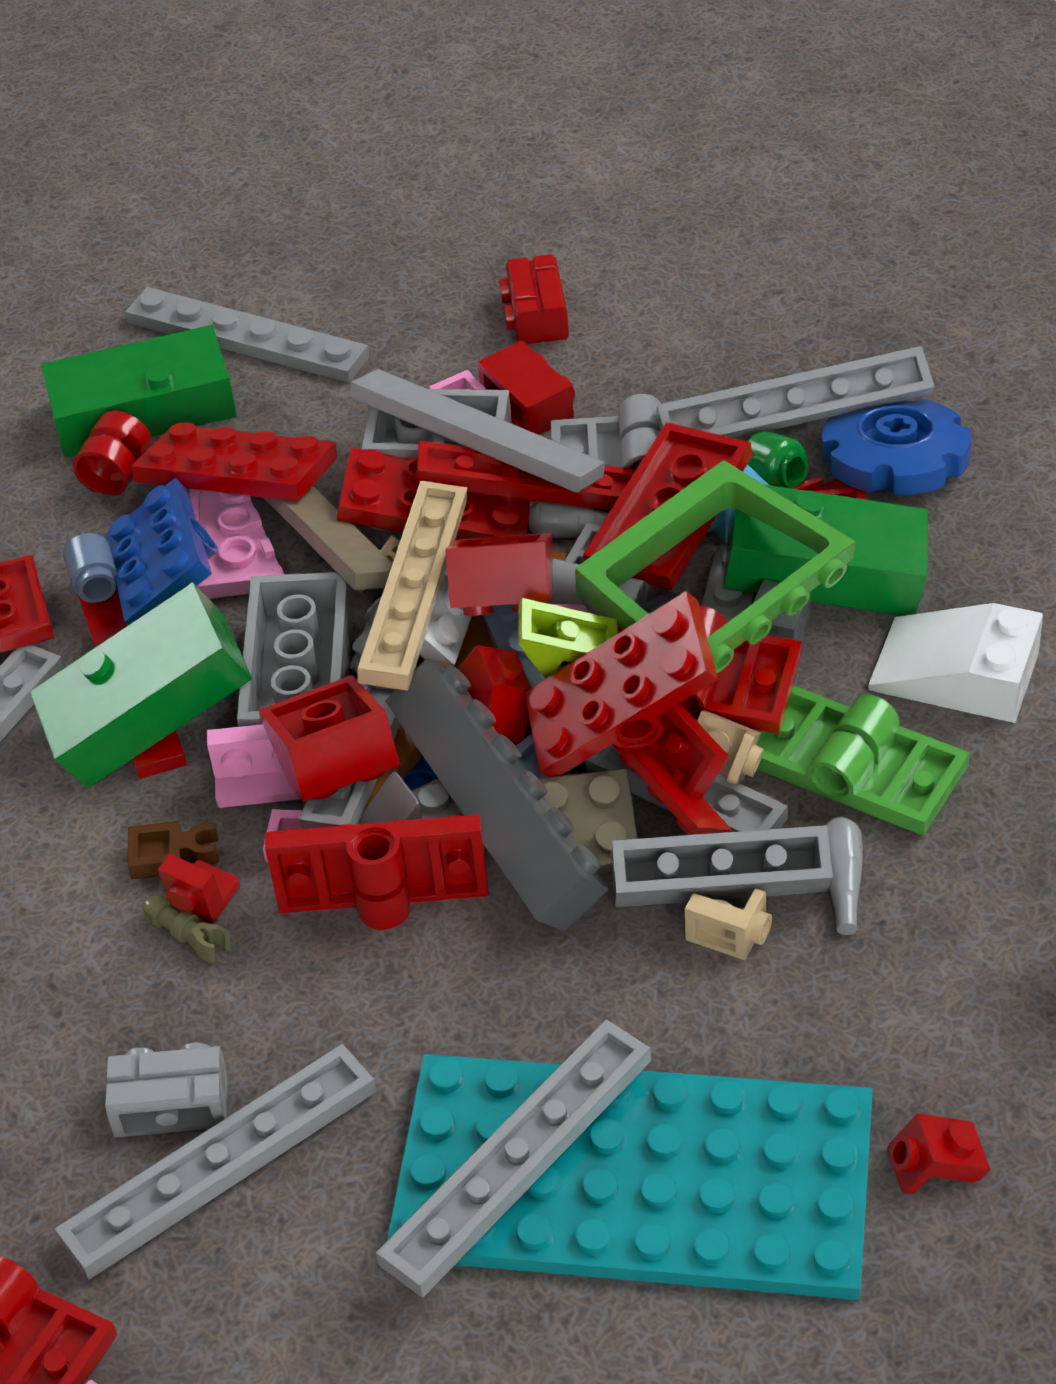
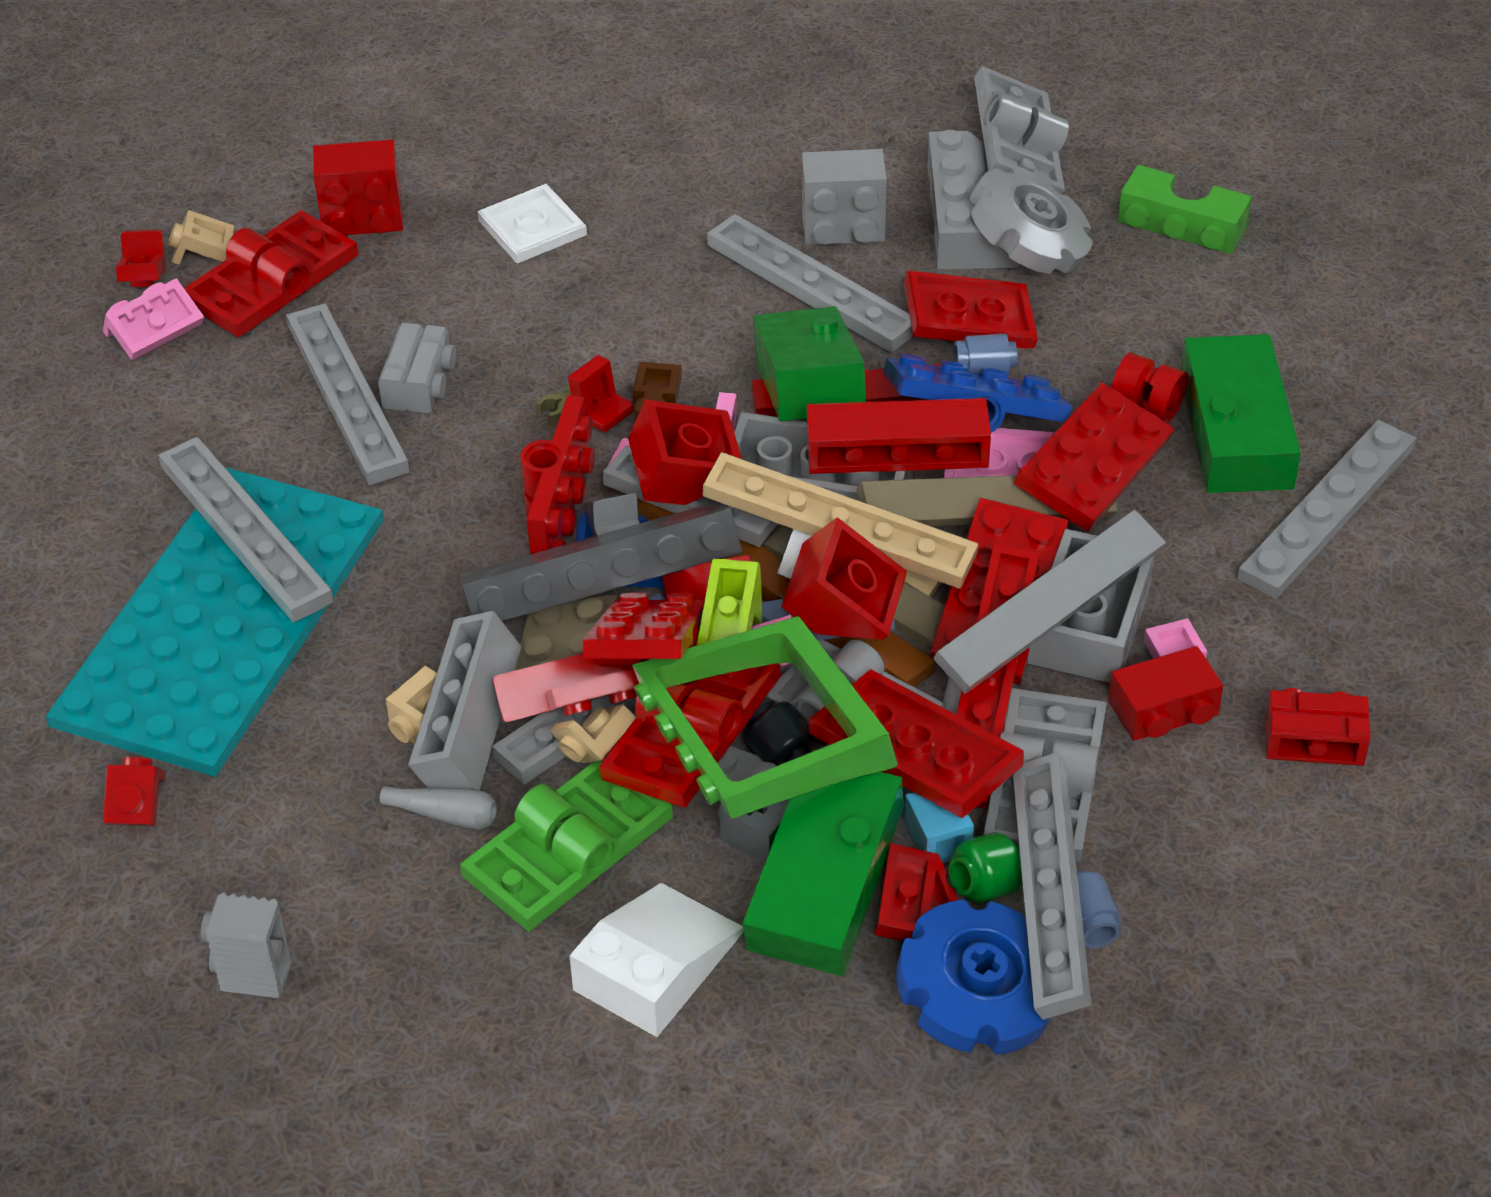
camera: 100 degrees right, 0 degrees up
(273, 569) = (898, 436): none -> red brick

